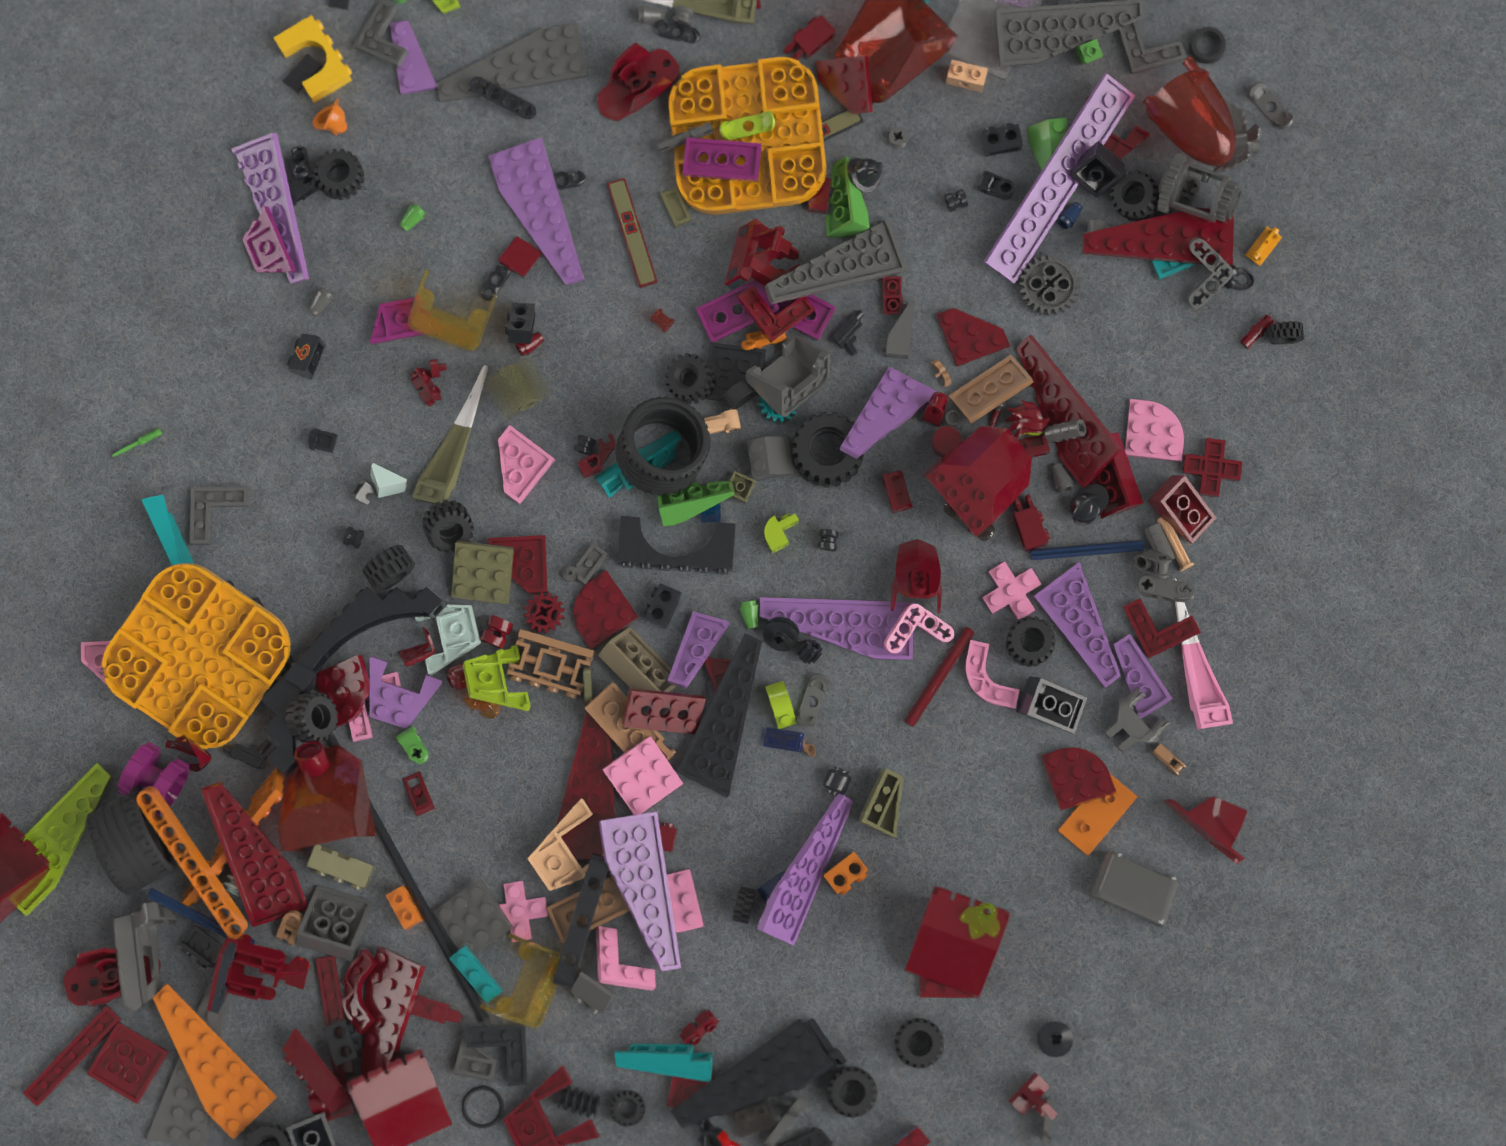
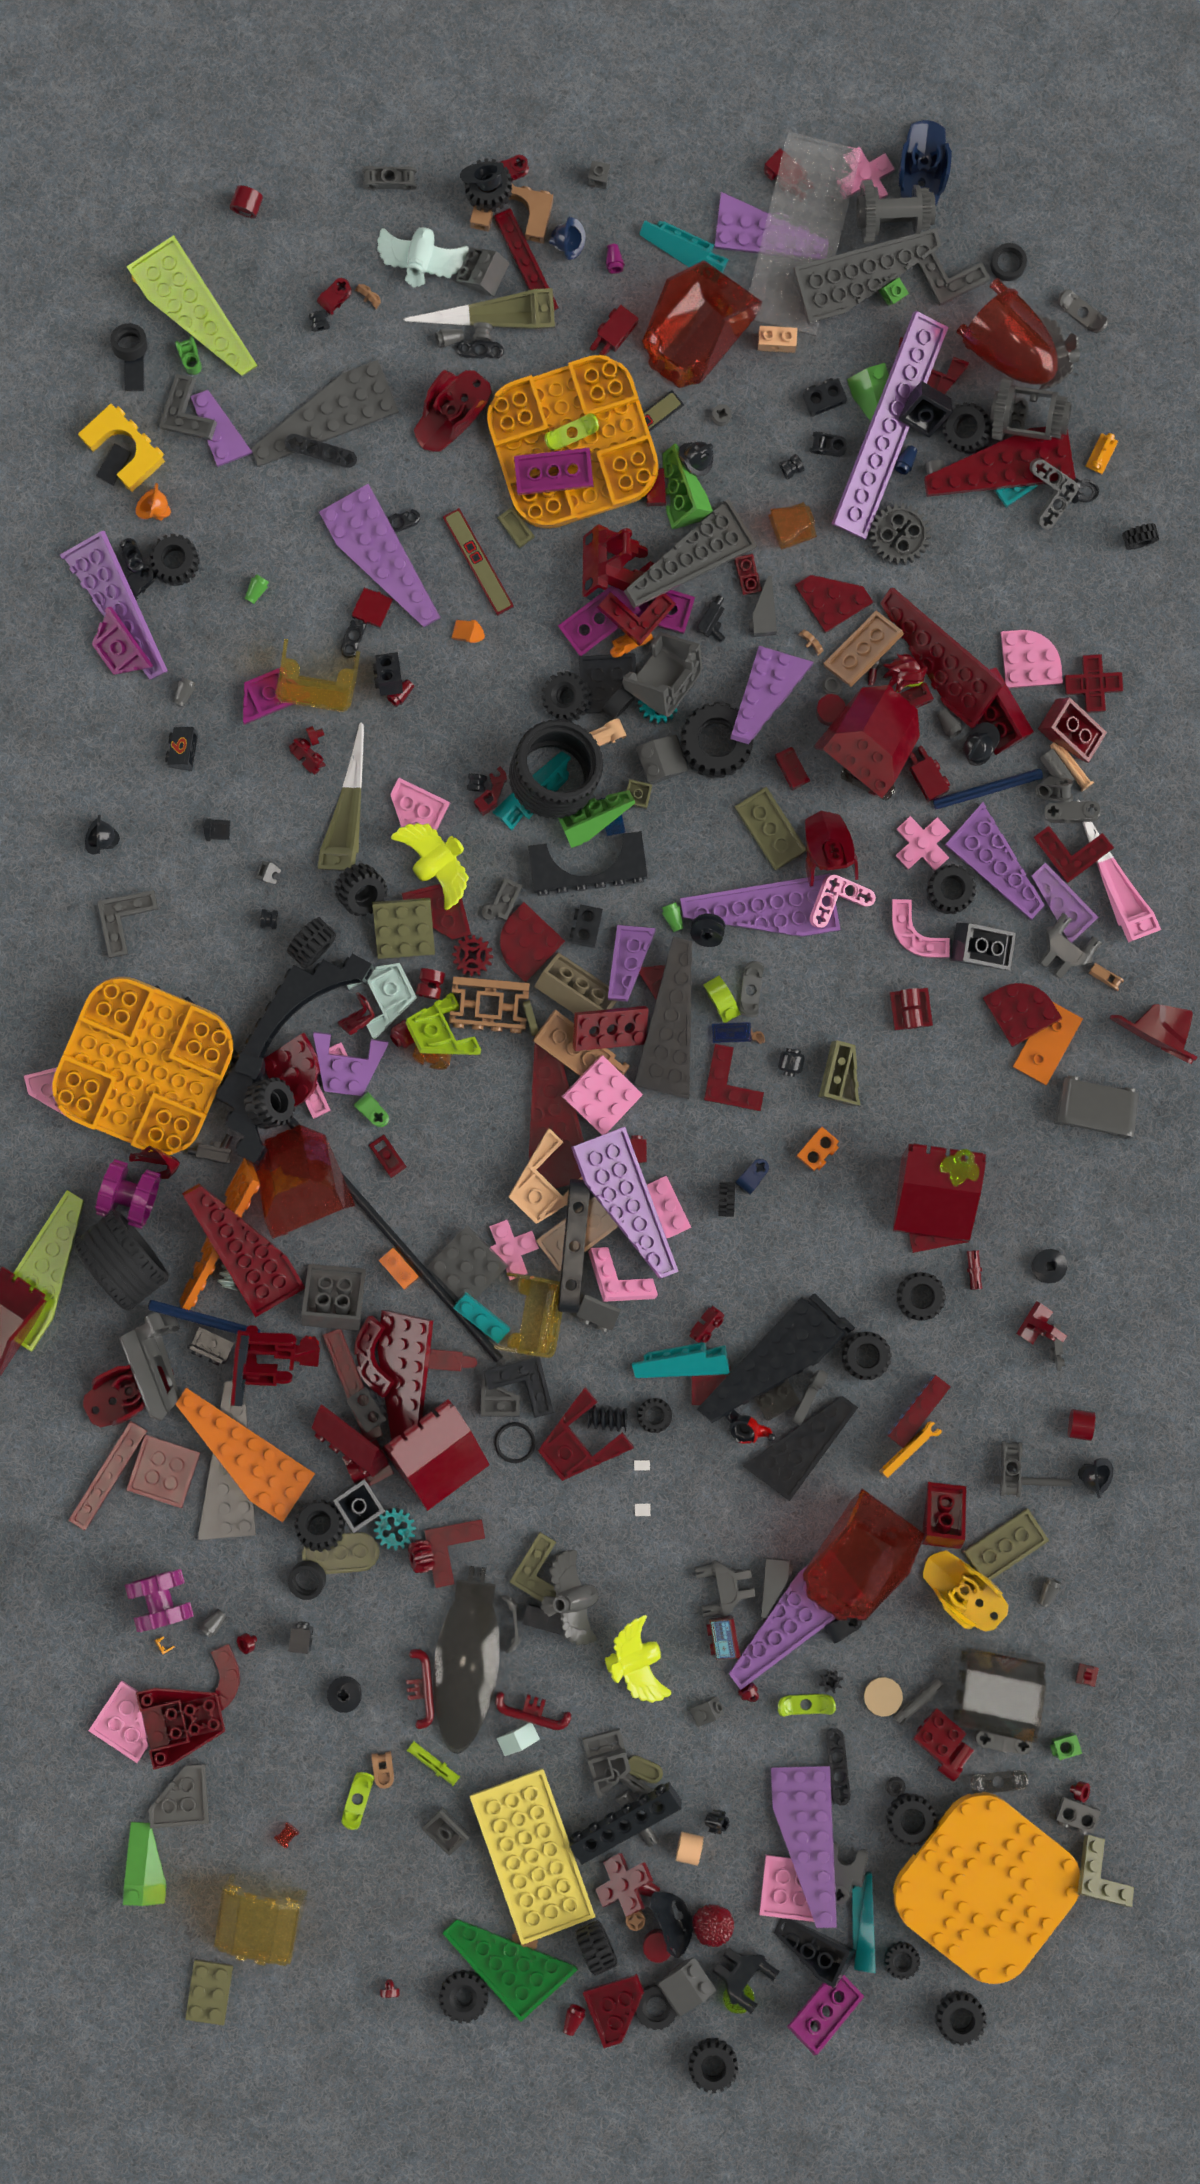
camera: 20 degrees left, 5 degrees up
(142, 440) = (37, 865): bright green piece -> none
(167, 530) = (84, 949): teal wedge -> none
(191, 852) = (184, 1257): orange beam -> none
(209, 425) = (100, 836): none -> black helmet
(291, 922) = (292, 1304): medium nougat plate -> none
(311, 759) = (279, 1143): dark red piece -> none
(340, 867) = (329, 1242): olive wedge -> none
(386, 482) = (289, 858): light aqua slope -> none
(516, 387) = (399, 739): olive piece -> none
(529, 511) = (436, 860): none -> neon yellow animal
(608, 297) = (468, 631): none -> orange tile
(662, 320) = (526, 643): clear red bush -> none
(680, 139) = (508, 457): dark grey pin -> none
(760, 796) = (717, 1087): none -> dark red plate
(774, 532) = (680, 831): lime brick -> none
(796, 889) = (775, 1170): medium lavender wing -> none
(809, 651) = (738, 941): black gear -> none
(828, 540) = (734, 829): black wheel -> none
(848, 81) = (662, 368): dark red plate -> none
(864, 546) = (770, 828): none -> olive tile
(935, 409) = (813, 679): dark red piece -> none
(939, 676) = (869, 941): dark red axle -> none
(945, 256) = (792, 525): none -> clear orange piece
(967, 752) = (911, 1008): none -> dark red plate
(979, 1027) = (974, 1270): none -> dark red pin
(1065, 431) = (945, 676): dark grey axle -> none
(1256, 331) = (1111, 540): dark red pin -> none

